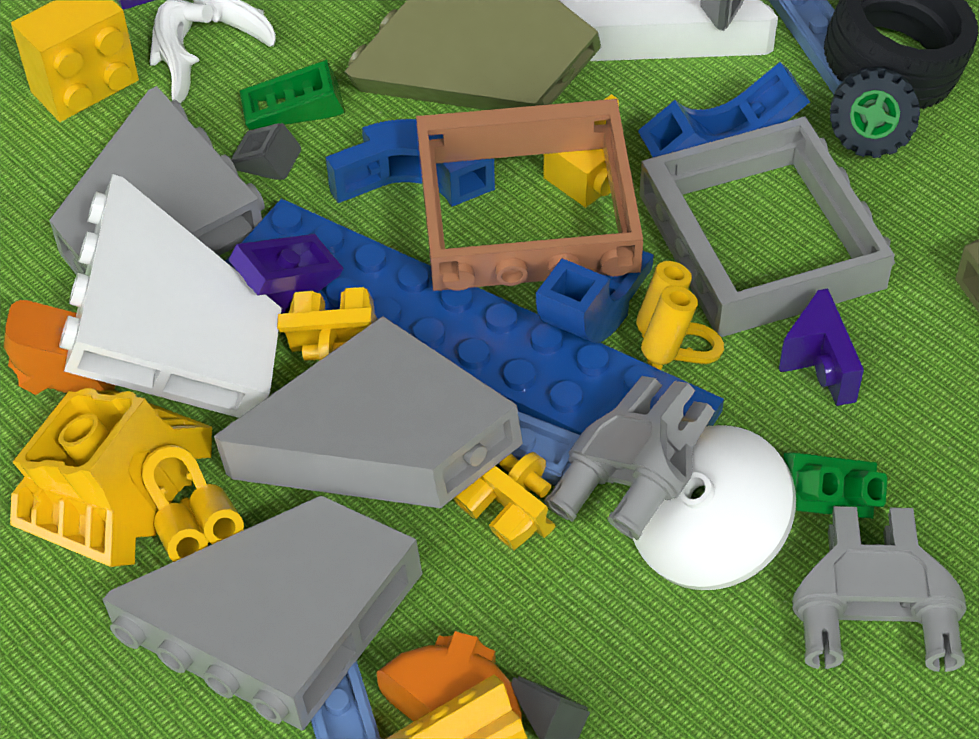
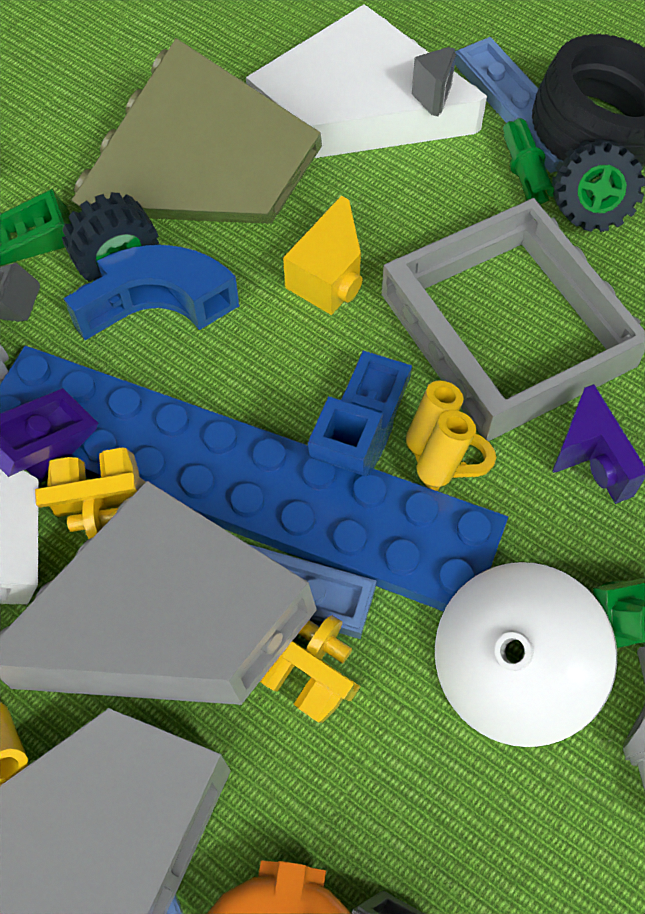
camera: 10 degrees left, 10 degrees up
(374, 99) = (104, 230): none -> black wheel
(524, 133) = (266, 250): nougat window -> none
(635, 449) = (449, 595): light grey connector -> none
(763, 104) = (491, 190): blue arch -> none
(814, 84) = (527, 161): none -> green axle

